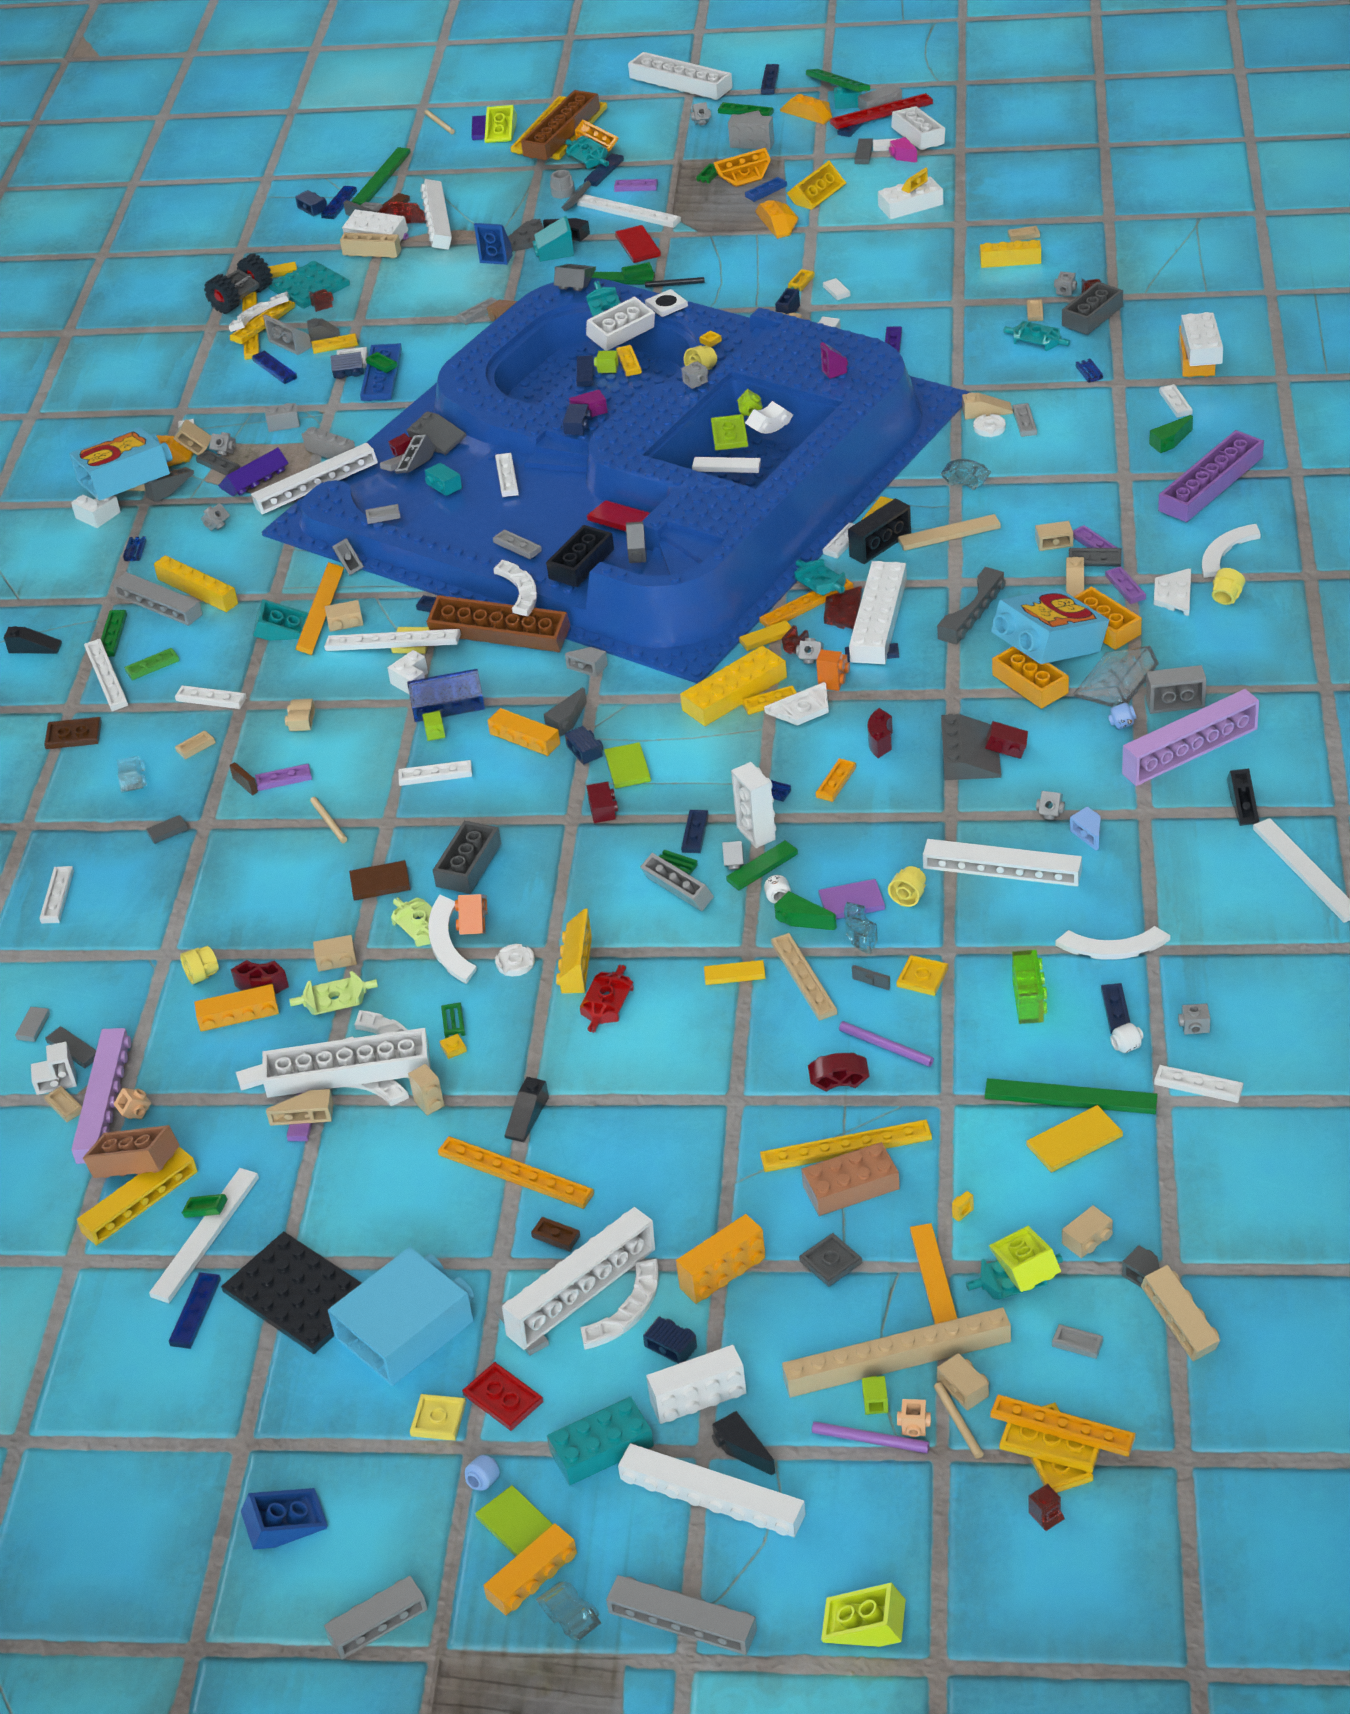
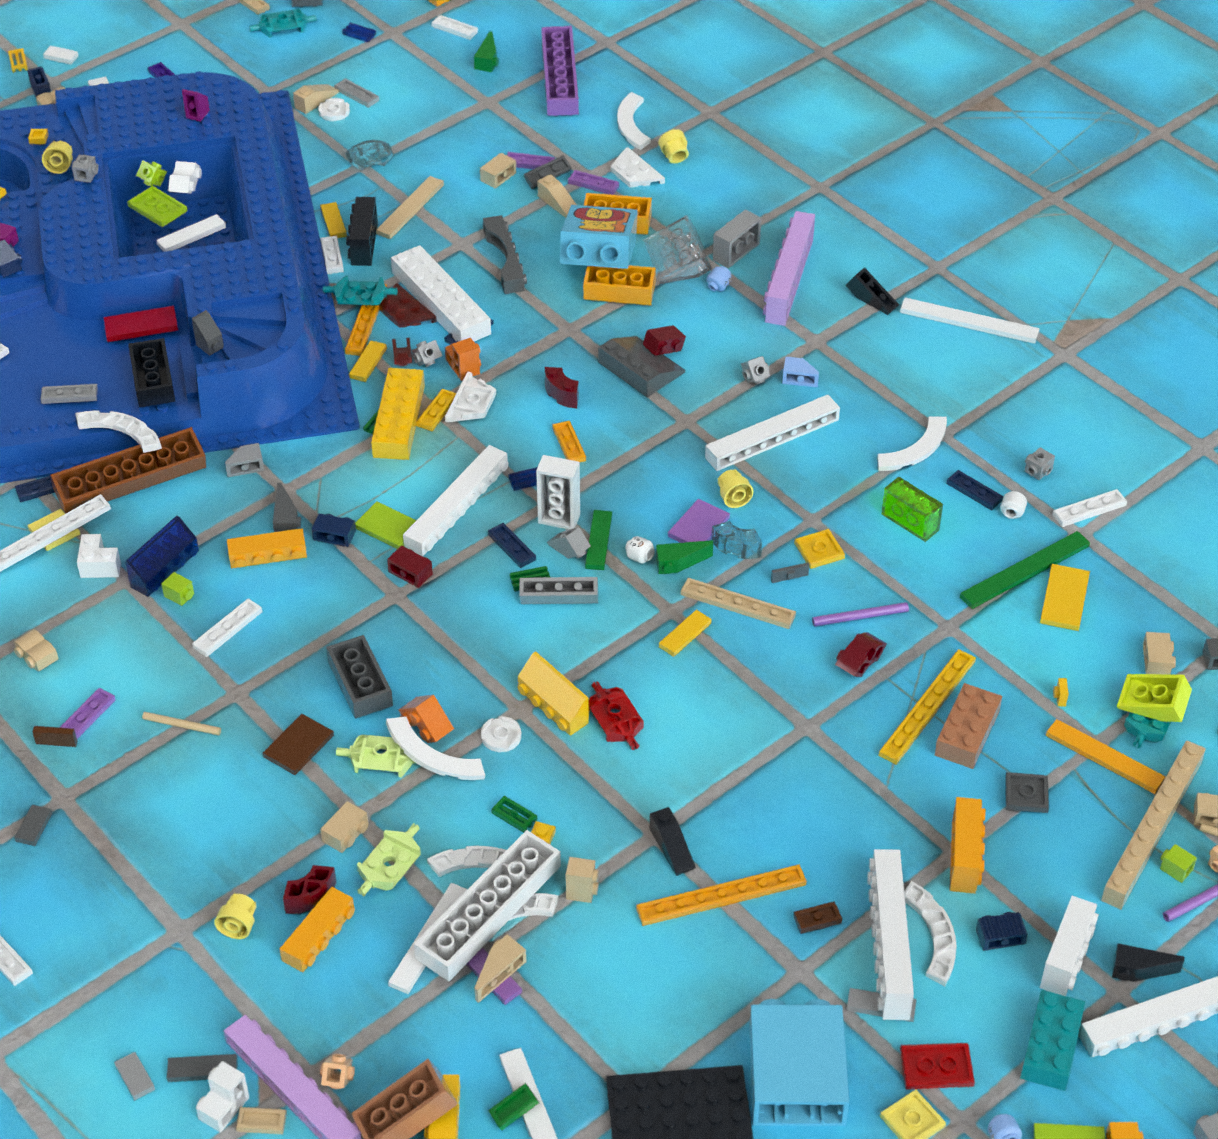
camera: 50 degrees left, 5 degrees up
(690, 773) = (455, 500): none -> white brick

